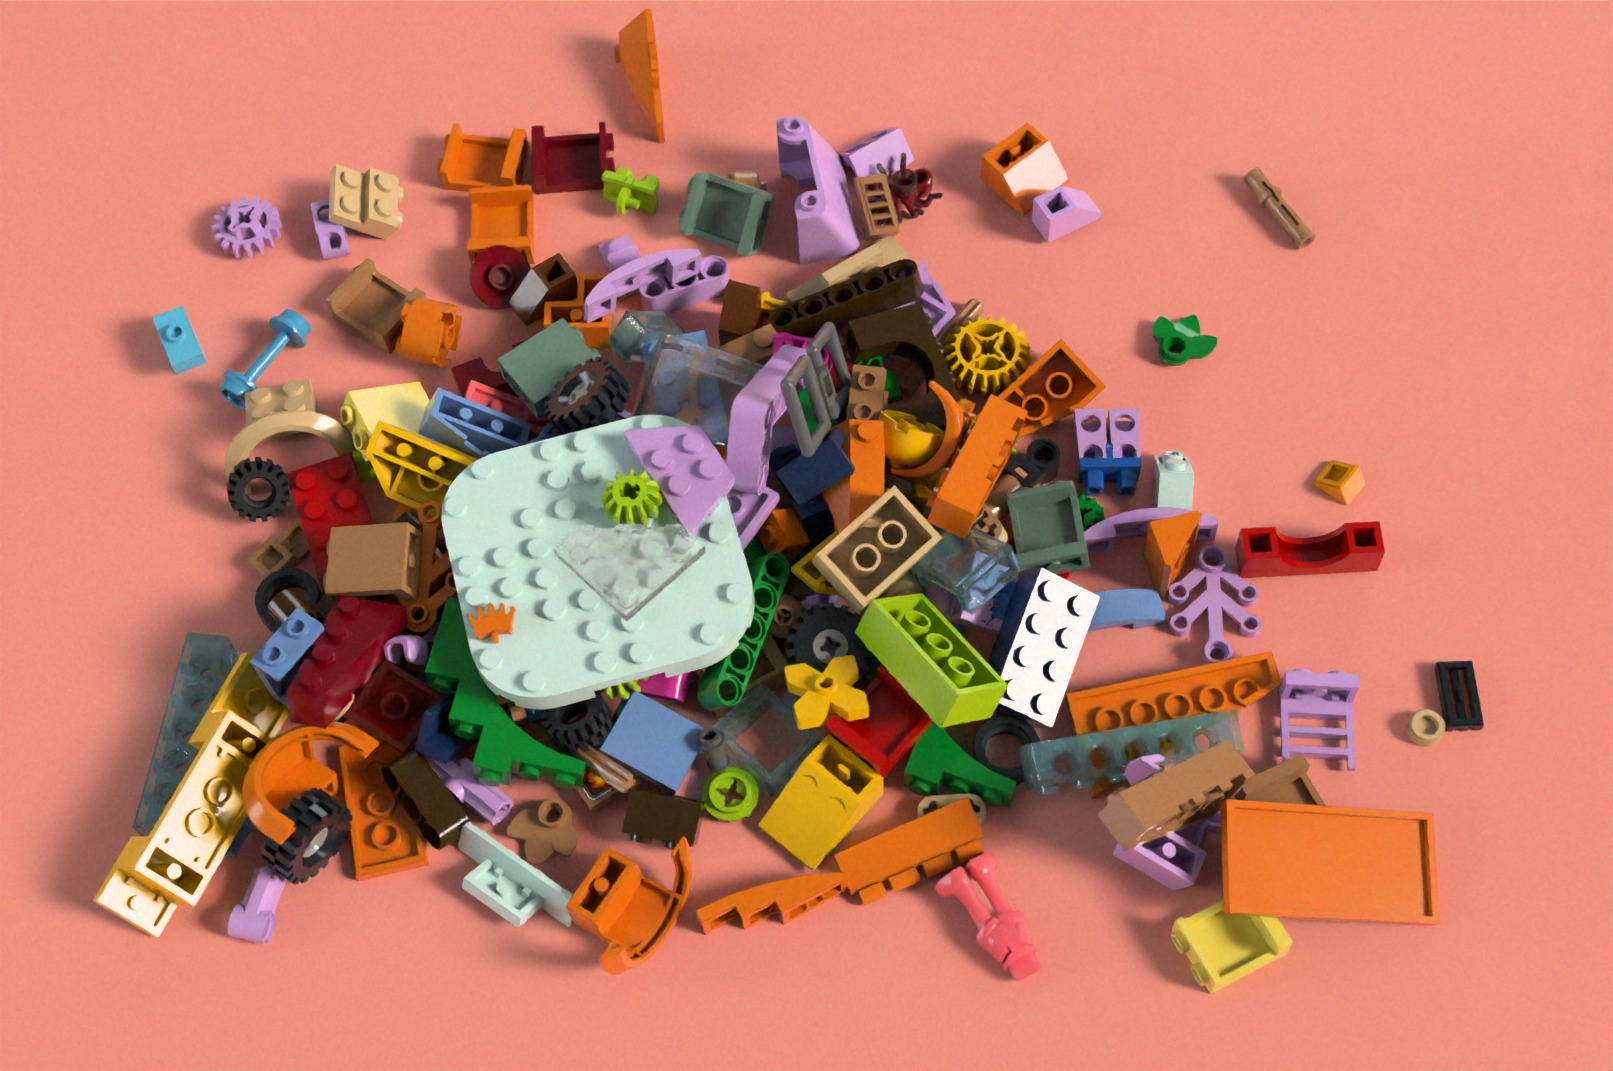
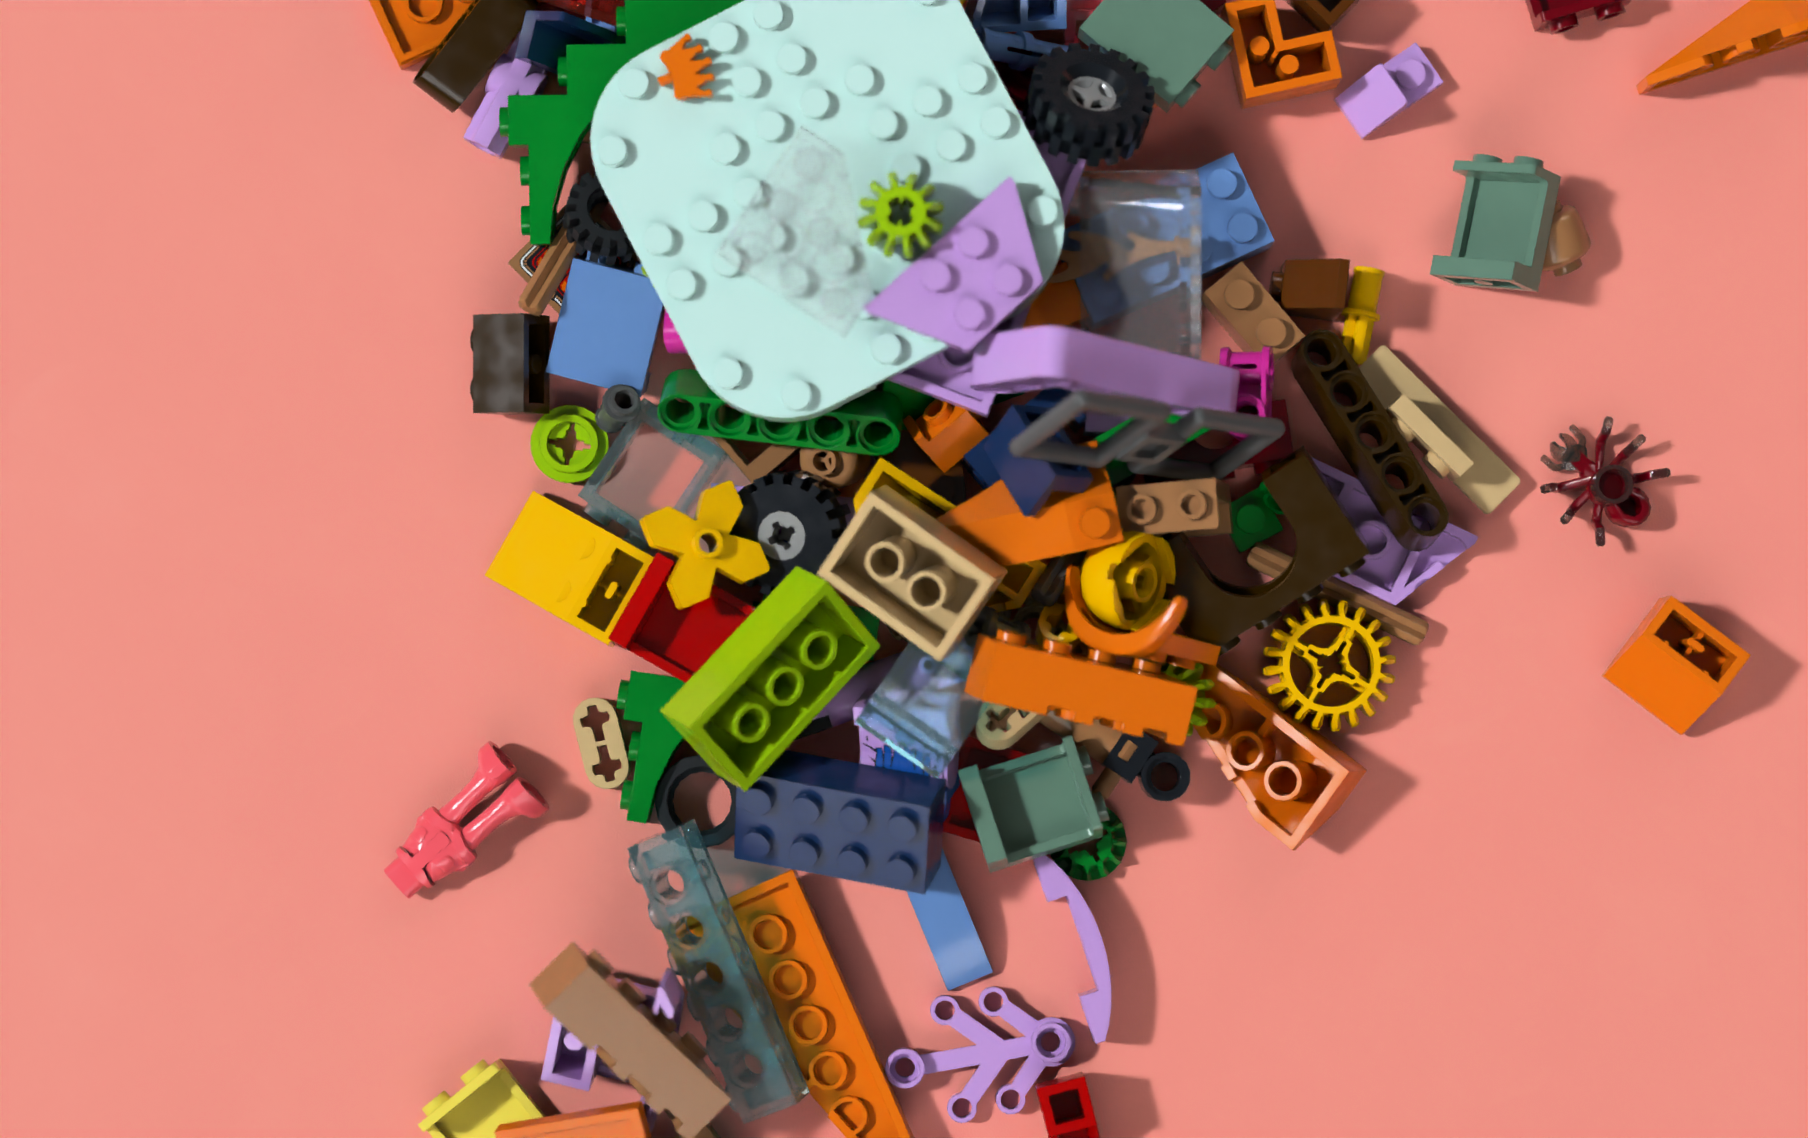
camera: 75 degrees right, 25 degrees up
(509, 882) = (382, 183): light aqua bracket -> none
(542, 835) = (466, 207): medium nougat plate -> none
(630, 192) = (1515, 64): lime hips -> none
(630, 908) = (374, 350): orange piece -> none
(641, 327) = (1267, 153): clear light blue slope -> none
(673, 264) = (1370, 170): lavender slope -> none
(699, 289) = (1364, 165): lavender beam -> none
(785, 897) = (434, 548): orange slope -> none
(823, 215) = (1520, 391): lavender windscreen -> none
(867, 218) = (1520, 469): medium nougat slope -> none
(881, 148) = (1674, 426): lavender panel -> none
(916, 843) = (544, 705): orange windscreen -> none
(1063, 212) = (1611, 740): lavender slope -> none
(1111, 460) = (1185, 871): hips -> none
(1169, 546) = (1039, 980): orange slope -> none
(1173, 480) = (1164, 969): light aqua slope -> none
(1181, 337) = (1425, 952): green plate -> none
(1271, 198) = (1732, 1025): medium nougat pin -> none

